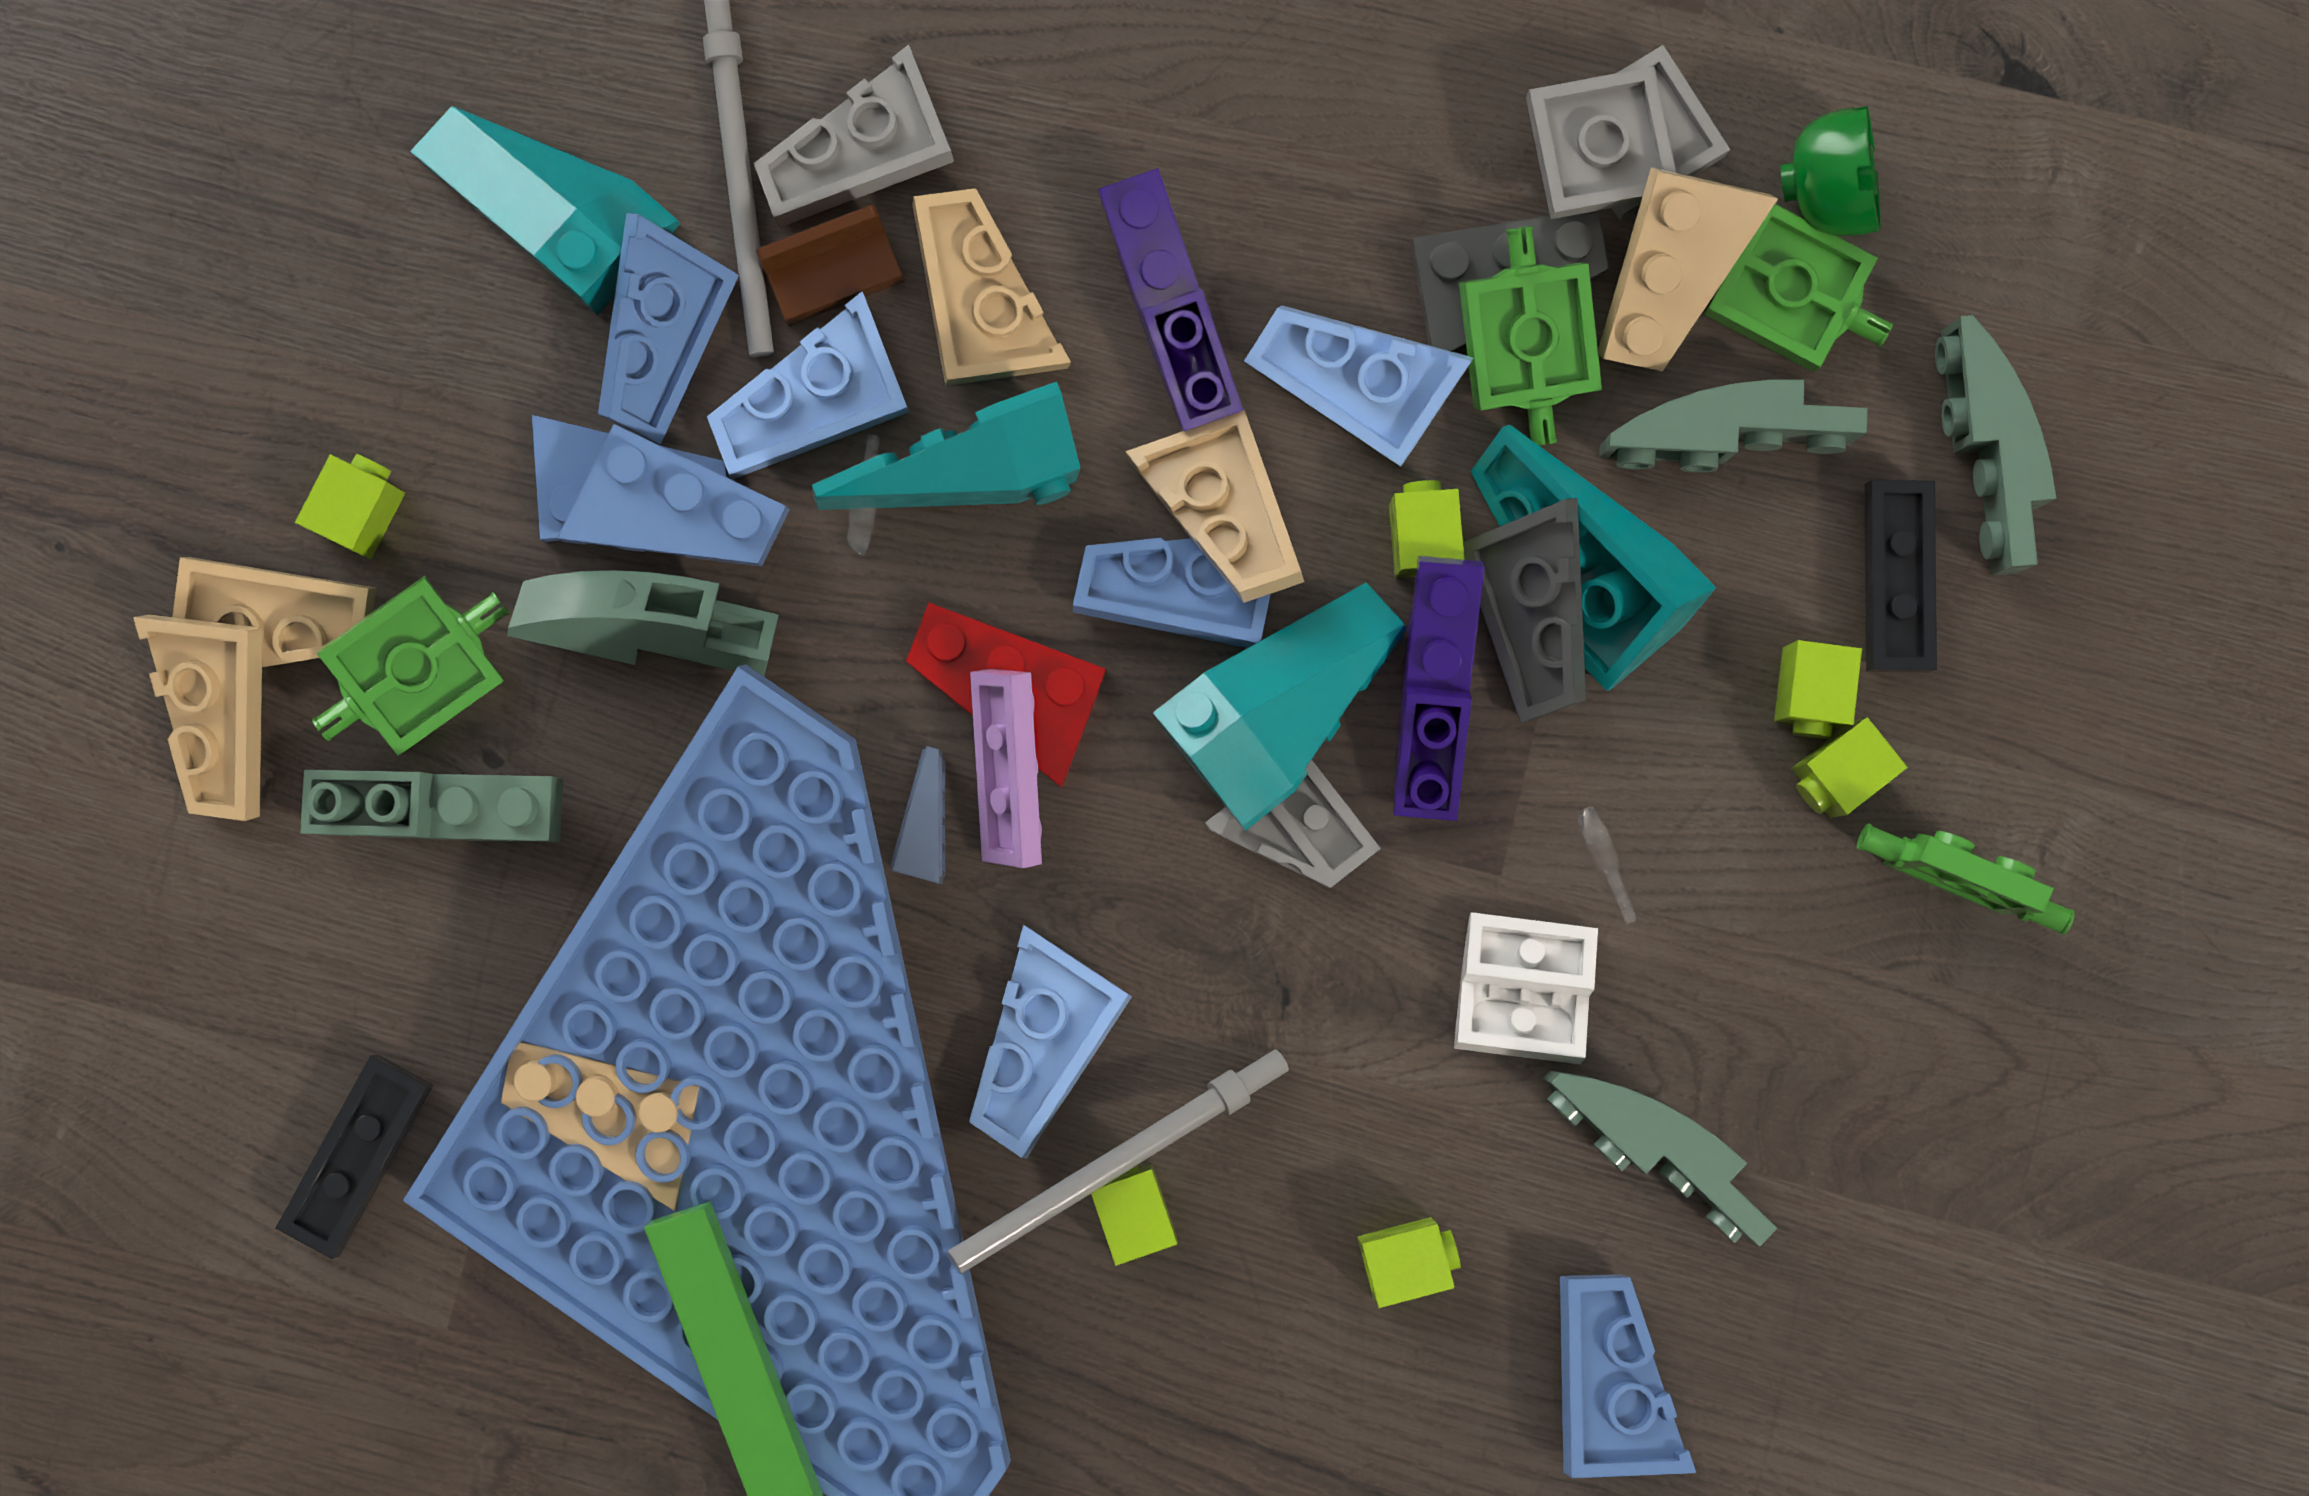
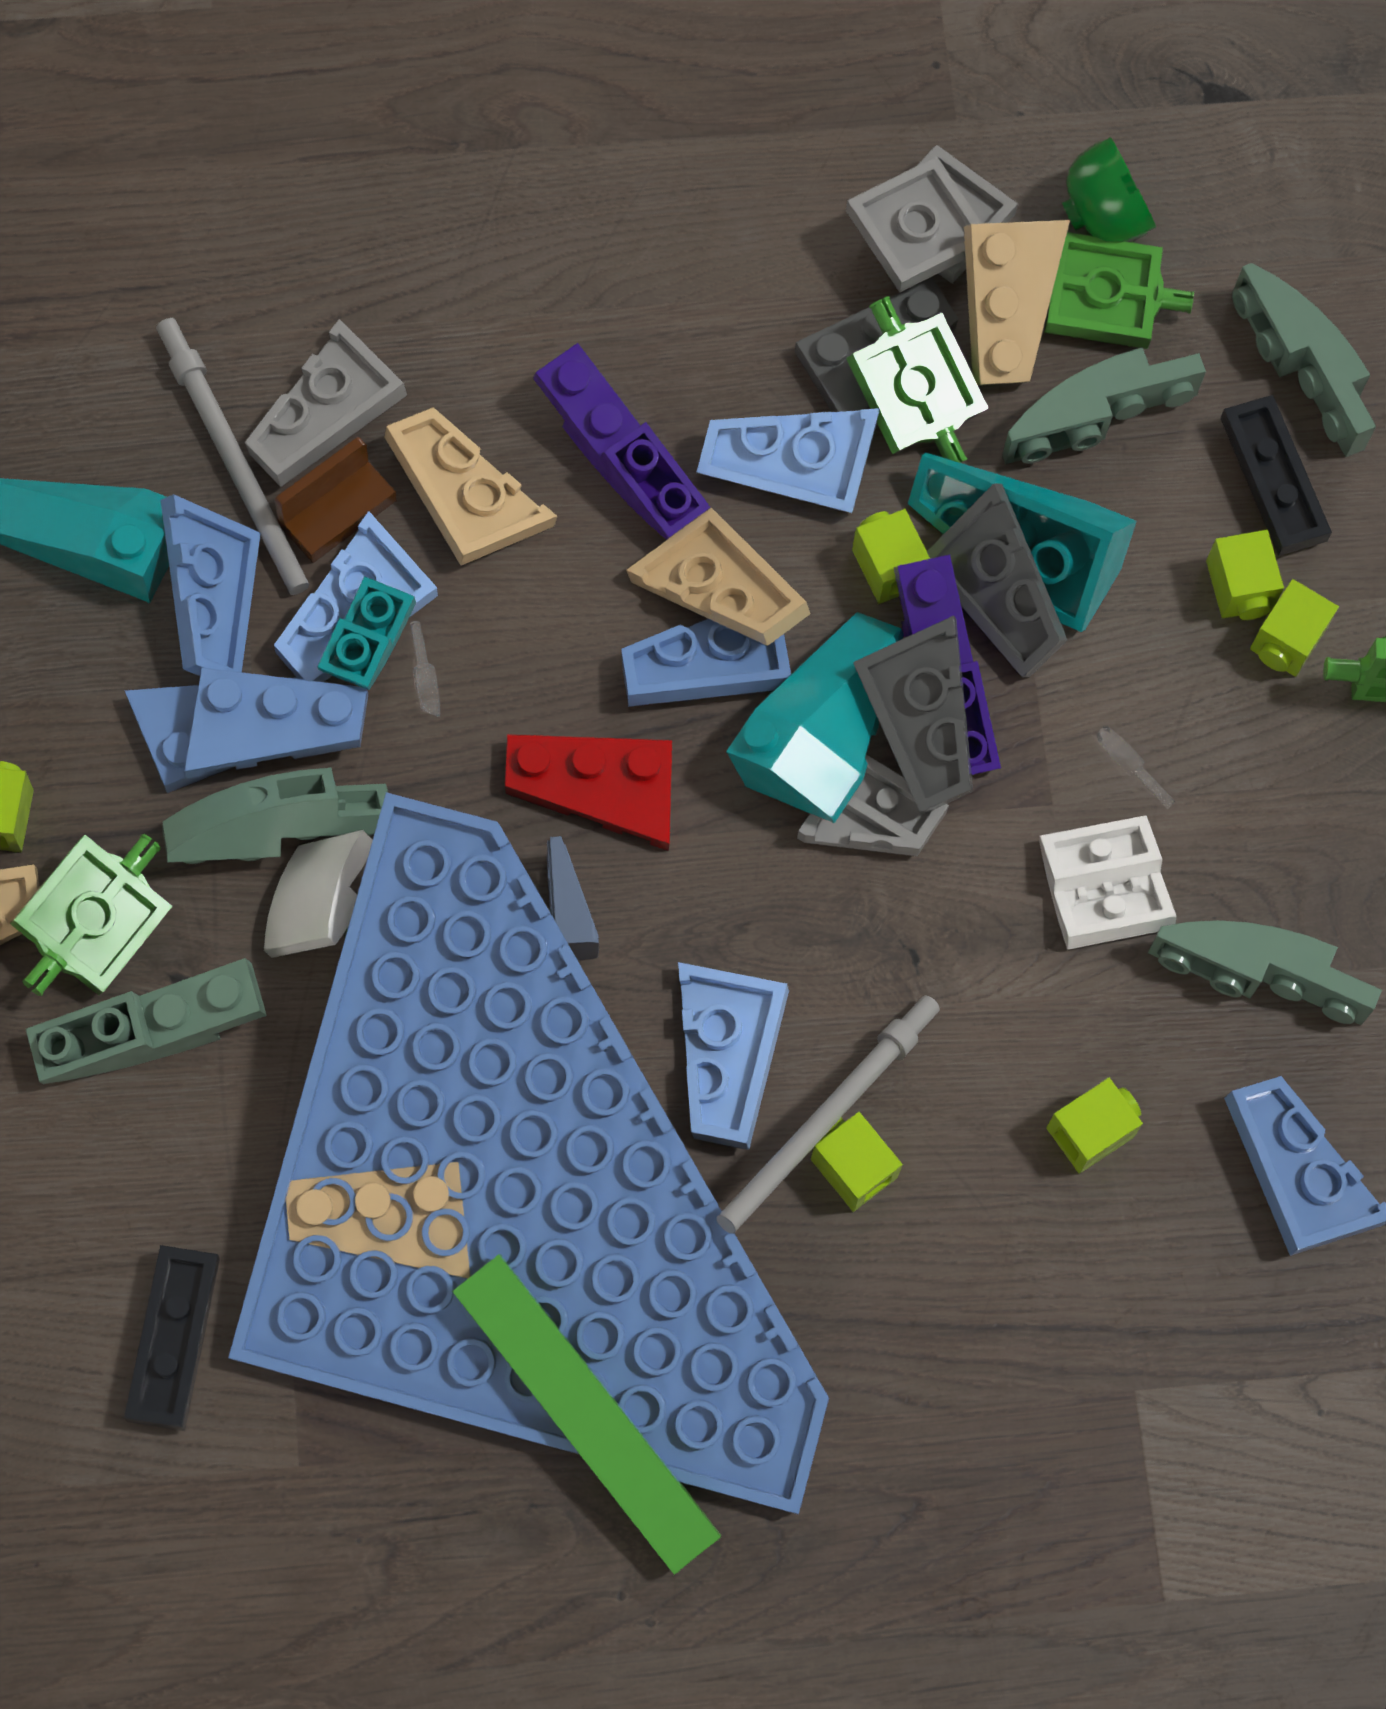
camera: 25 degrees left, 15 degrees down
(647, 724) = (315, 894): none -> white slope
(807, 442) = (367, 634): none -> teal slope
(1005, 457) = (526, 604): teal wedge -> none
(1006, 767) = (620, 836): lavender plate -> none
(1386, 740) = (922, 711): none -> dark grey wing

